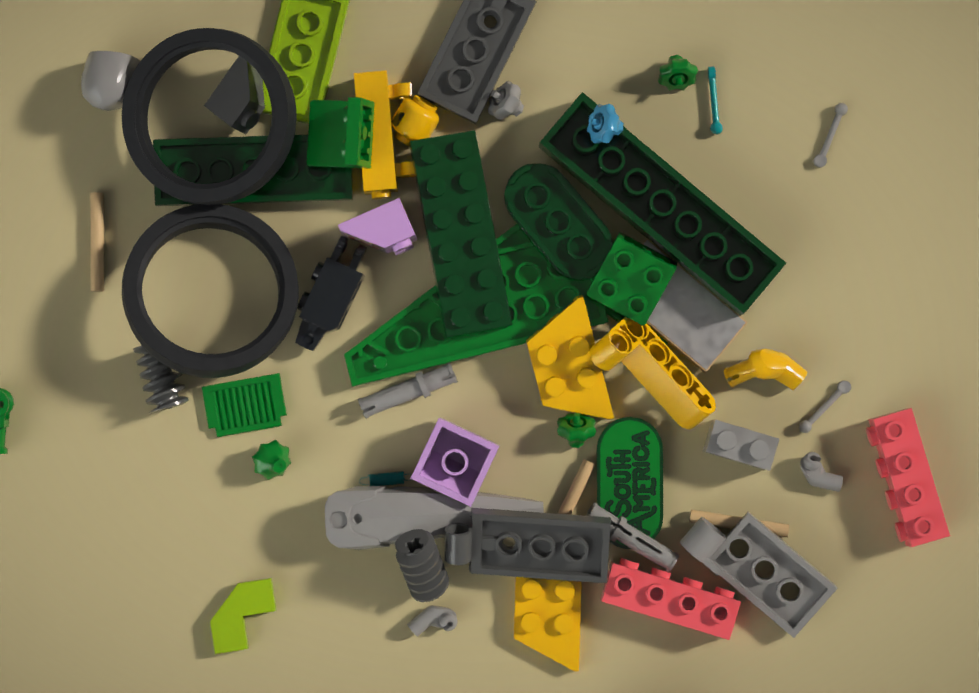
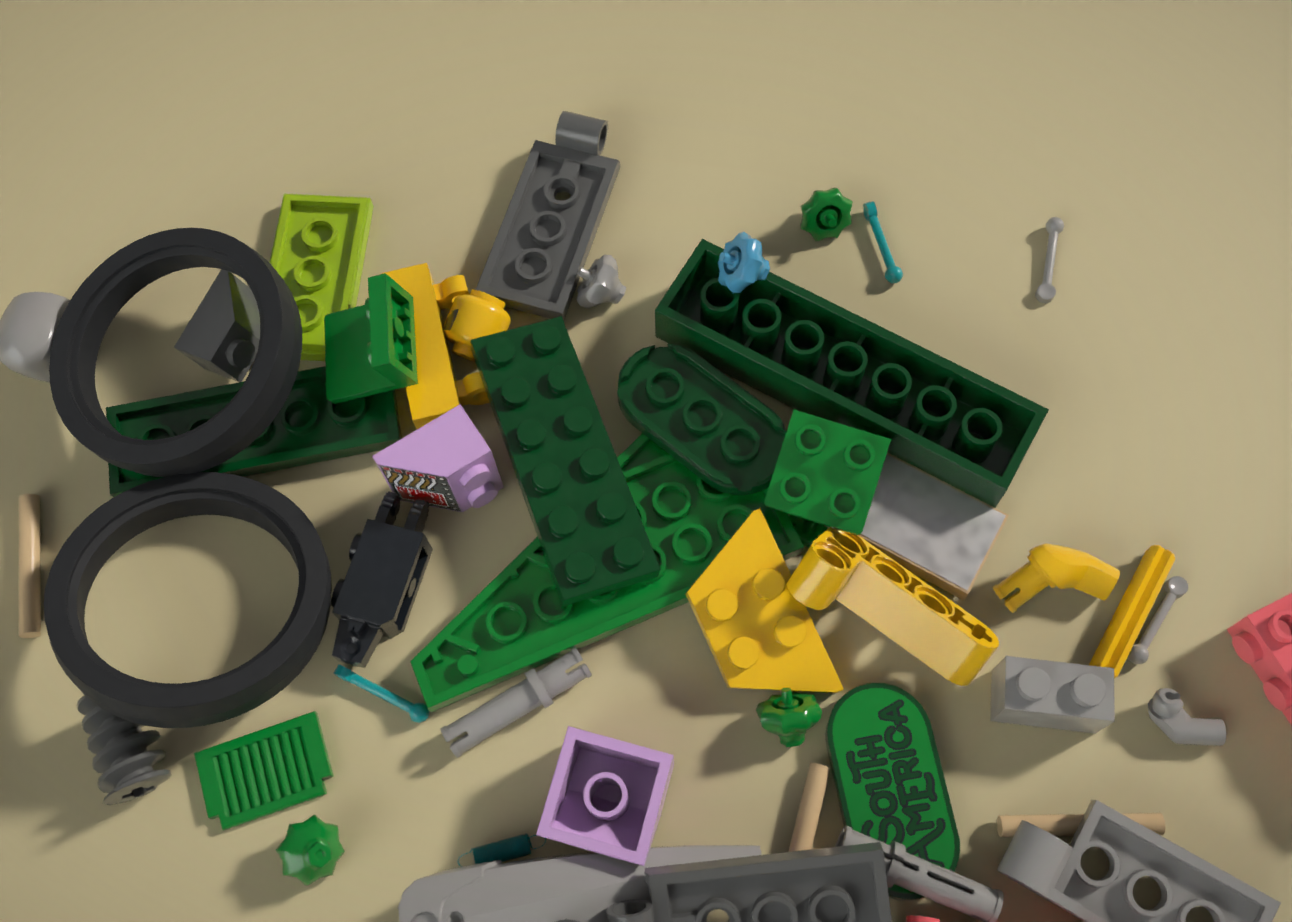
camera: 10 degrees left, 20 degrees down
(344, 384) = (417, 711): none -> teal hinge
(809, 399) = (1133, 609): none -> yellow axle

